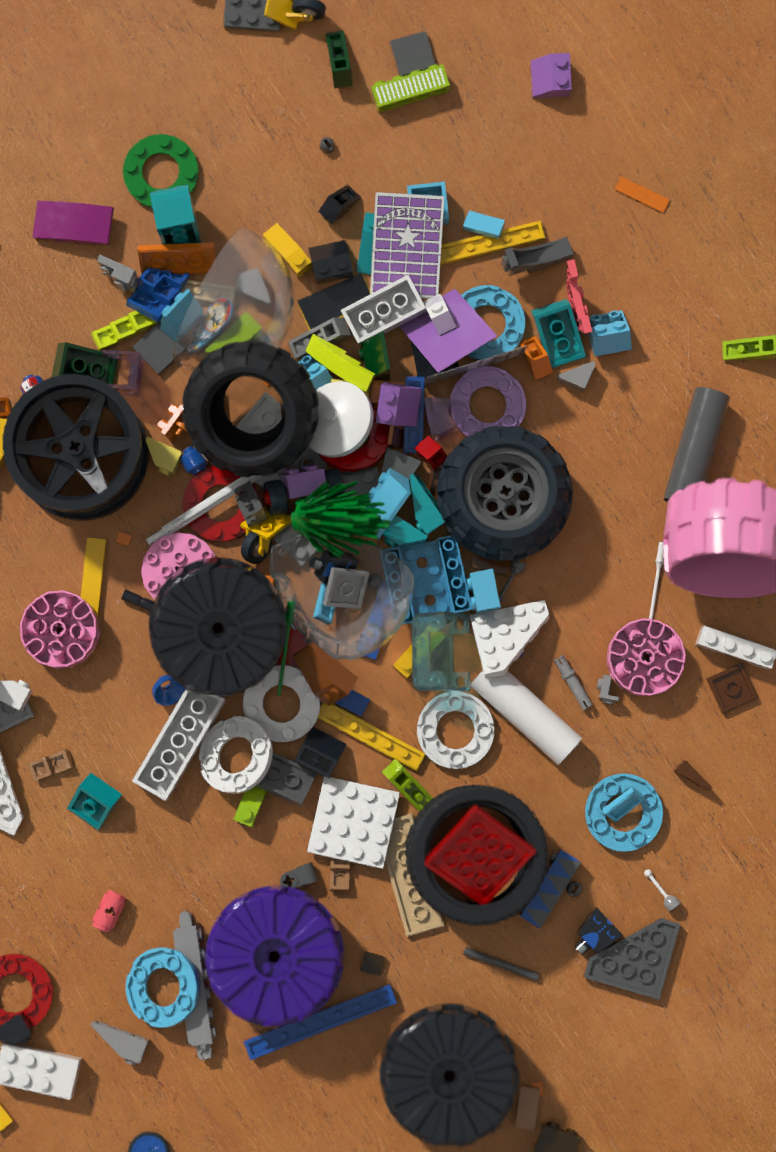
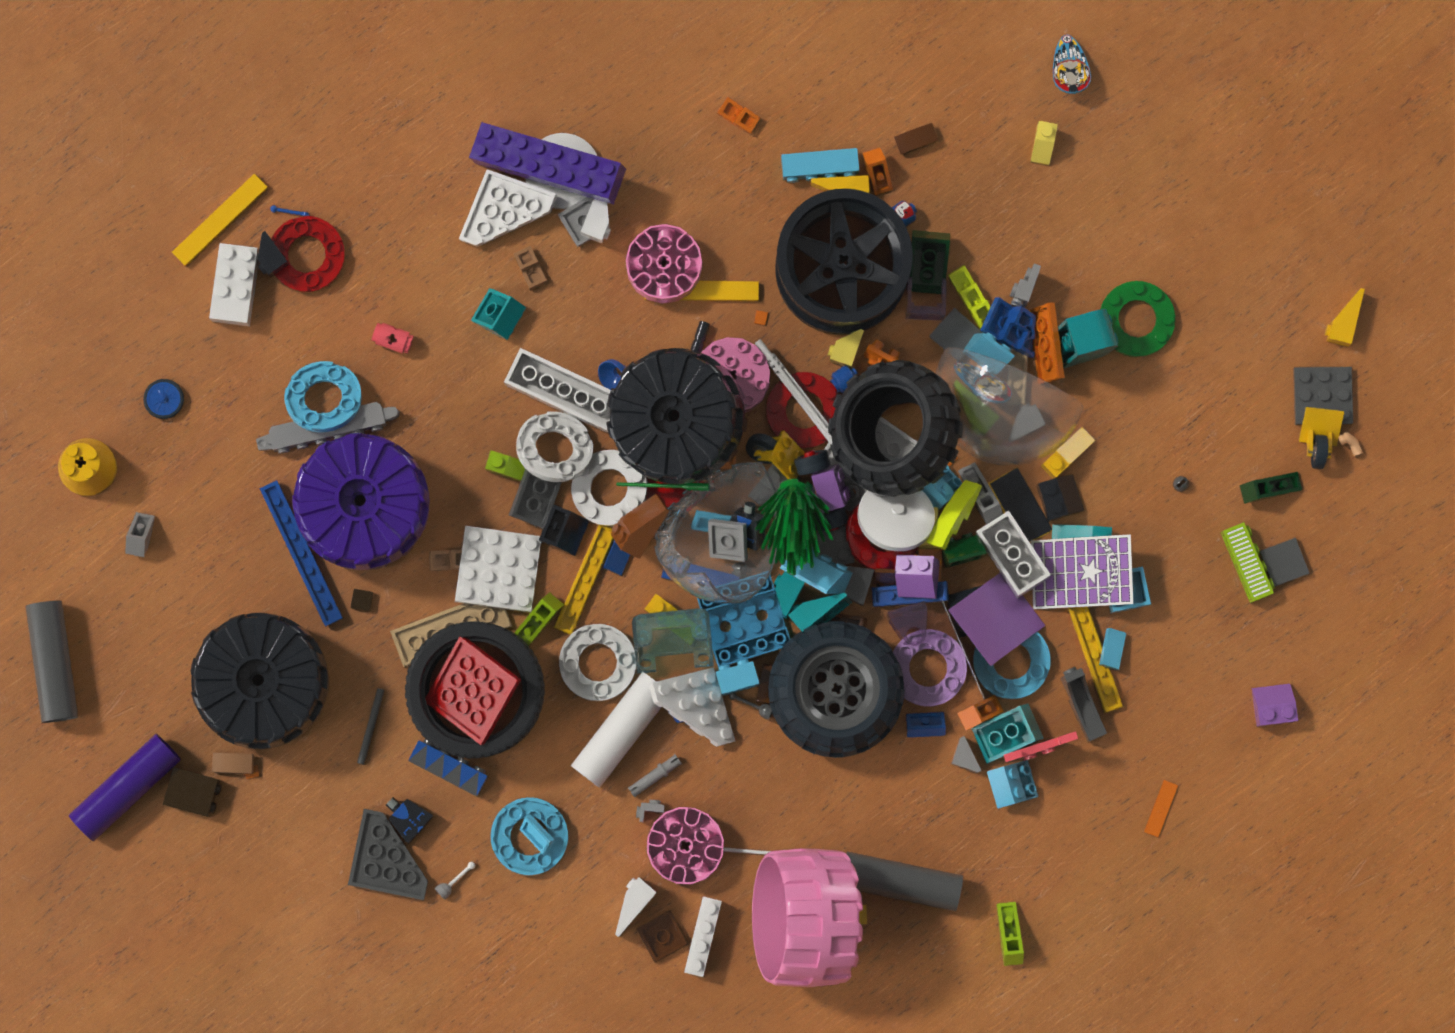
camera: 80 degrees right, 0 degrees up
(73, 222) = (1075, 236): magenta slope -> none
(125, 1043) = (266, 365): light grey slope -> none
(249, 504) = (803, 438): dark grey hinge -> none
(302, 876) = (441, 523): dark grey piece -> none
(339, 204) = (1120, 500): black slope -> none
(431, 452) = (872, 613): red brick -> none
(439, 314) = (1013, 609): white slope -> none
(542, 412) = (925, 724): none -> blue slope
(570, 887) = (451, 789): dark grey hinge -> none
(687, 771) = (573, 899): reddish brown slope -> none
(696, 710) = (635, 900): none -> white slope

